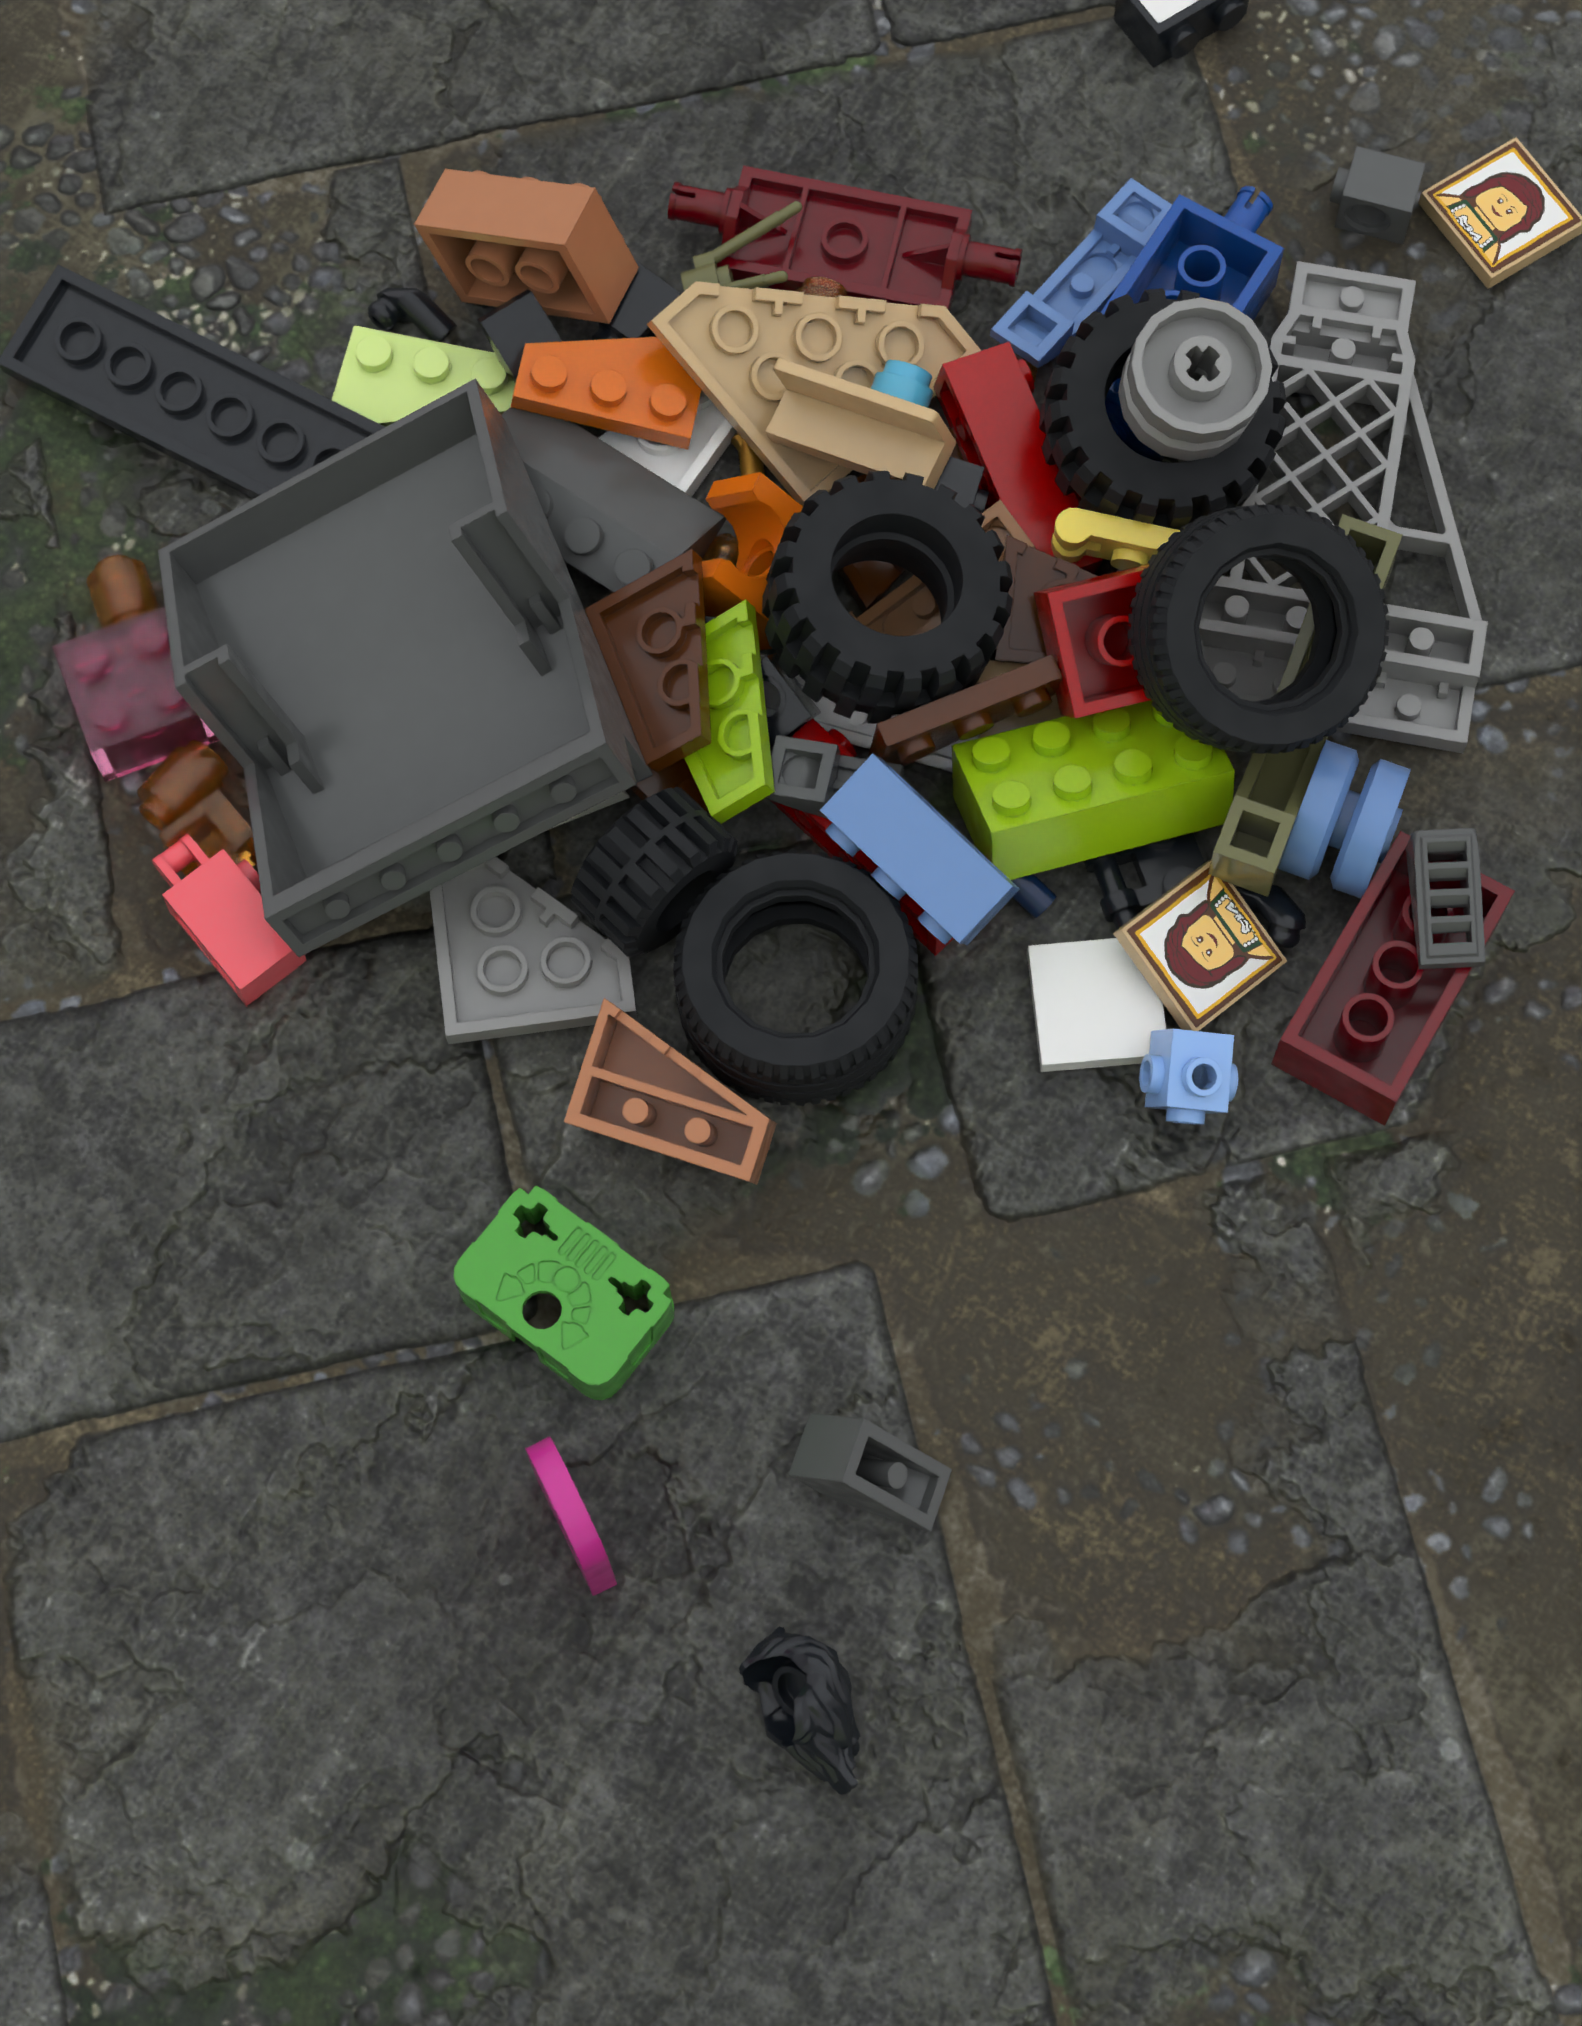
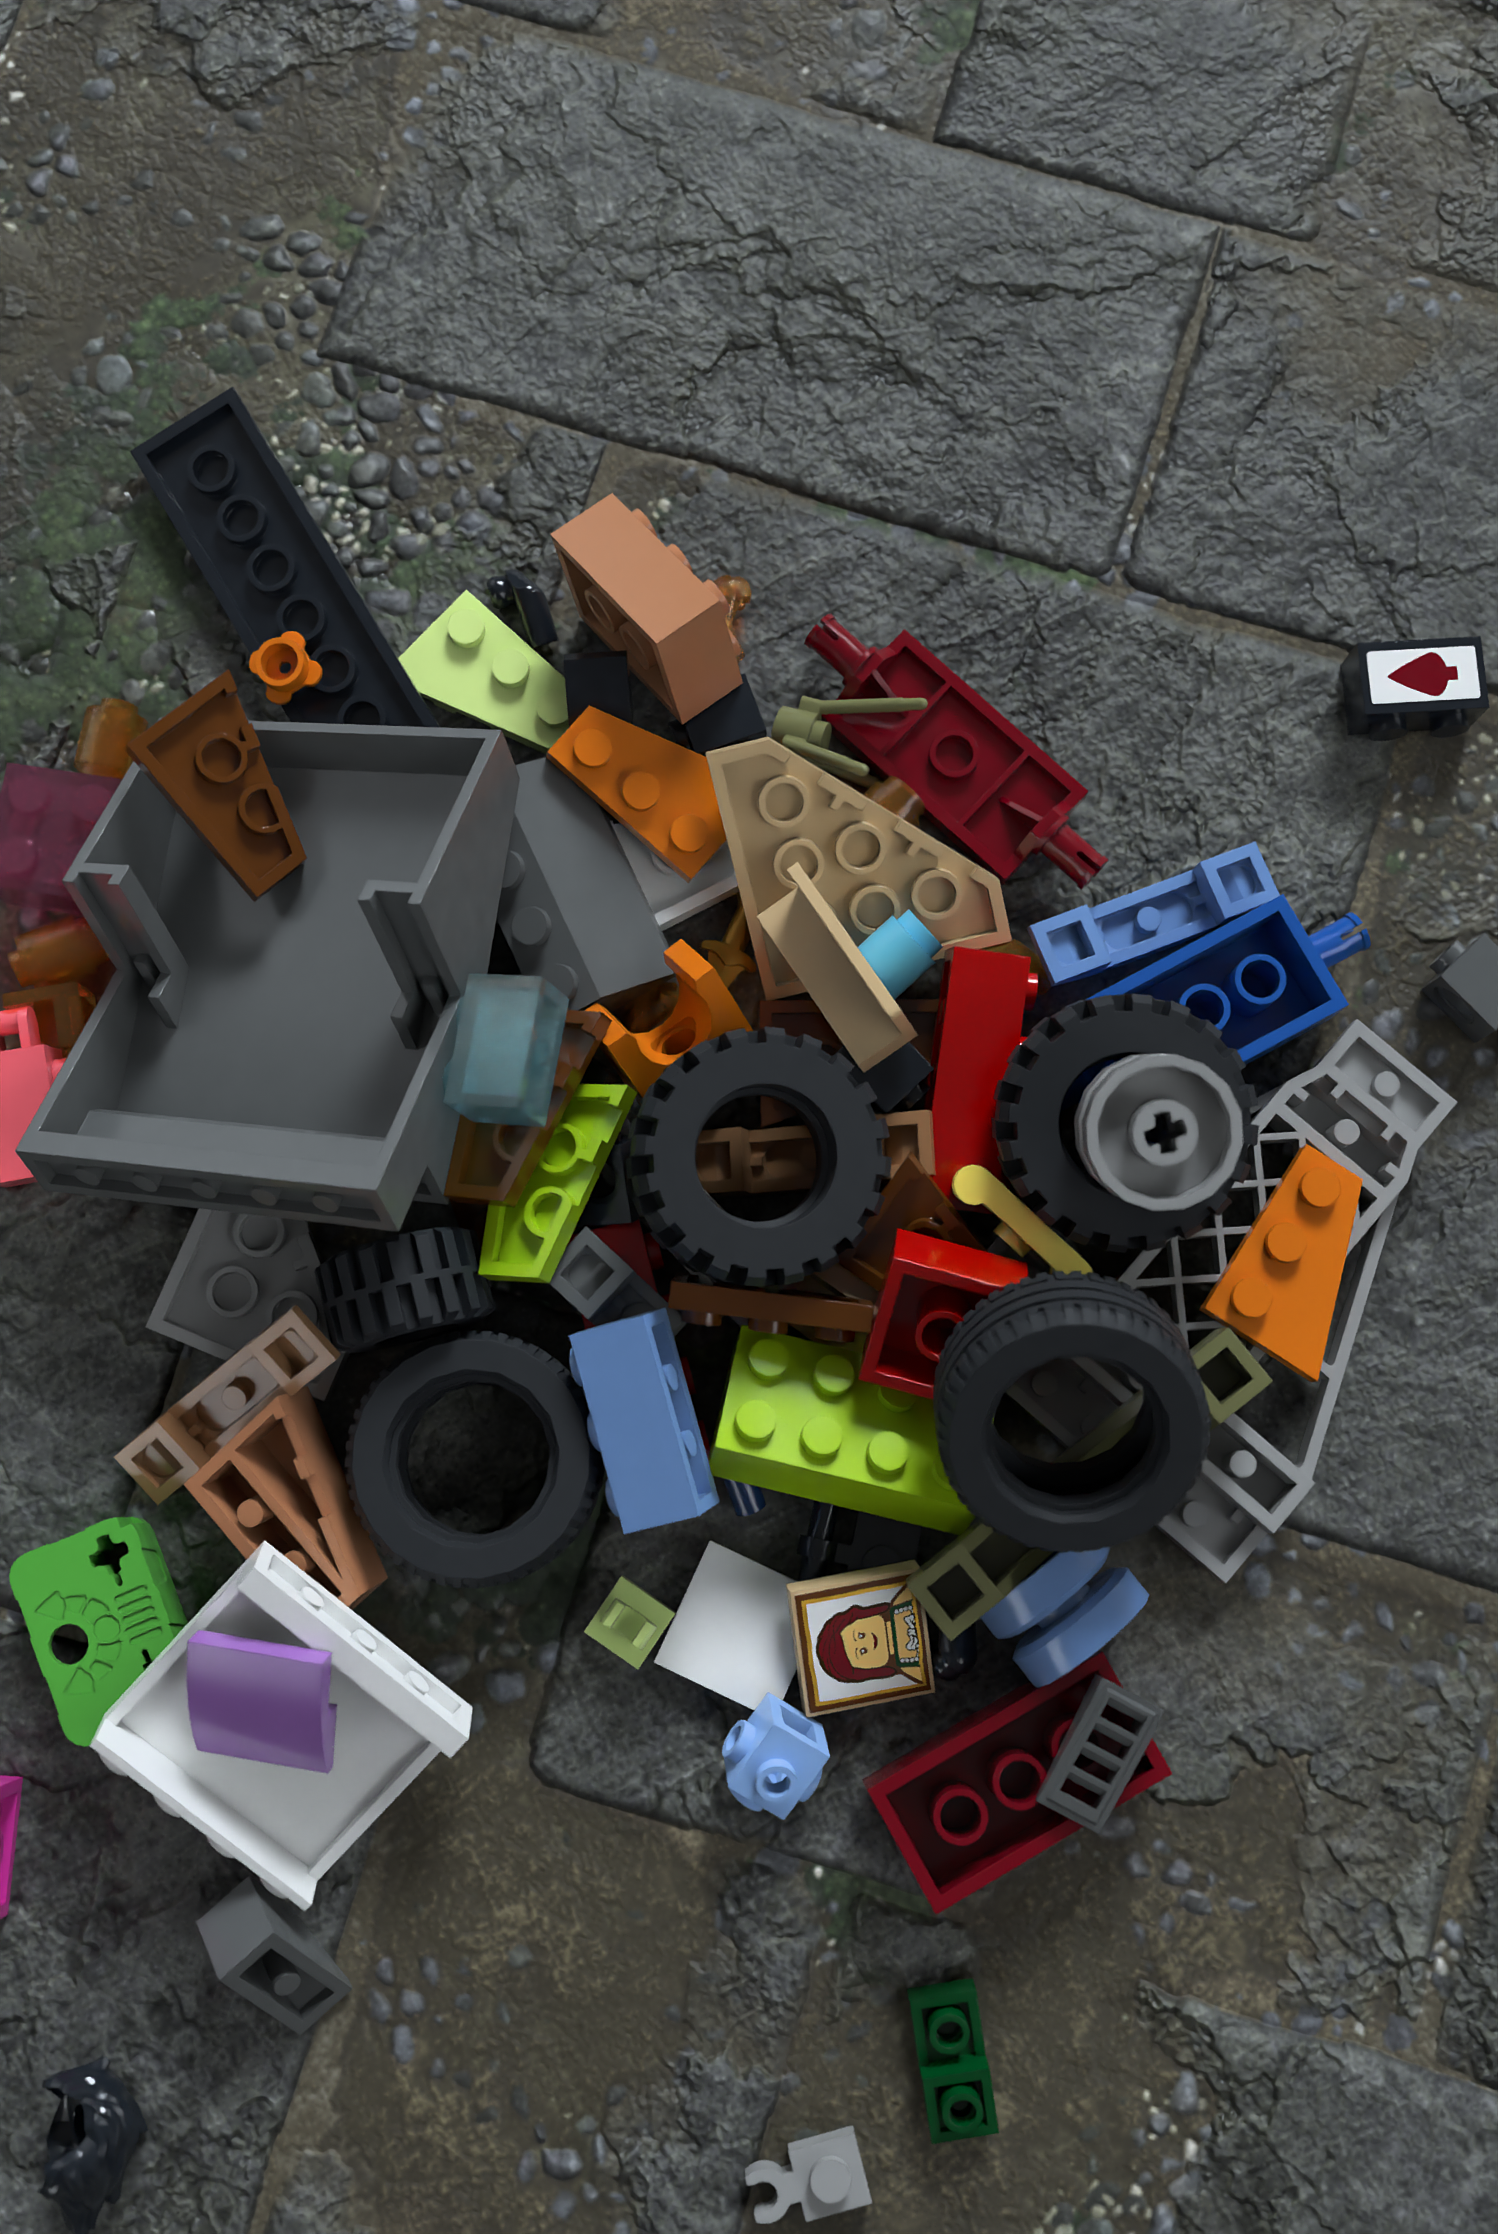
camera: 25 degrees right, 10 degrees up
(238, 439) = (267, 664): none -> orange plate
(253, 560) = (218, 782): none -> reddish brown wing
(556, 1047) = (225, 1401): none -> medium nougat slope
(631, 616) = (505, 1049): none -> clear light blue brick
(742, 1237) = (261, 1701): none -> medium lavender slope
(765, 1260) = (269, 1815): none -> white panel
(1001, 1050) = (630, 1622): none -> yellowish green tile
(1363, 458) = (1291, 1264): none -> orange wing
(1433, 1388) = (822, 2175): none -> light grey plate
(1482, 1238) = (952, 2061): none -> dark green slope

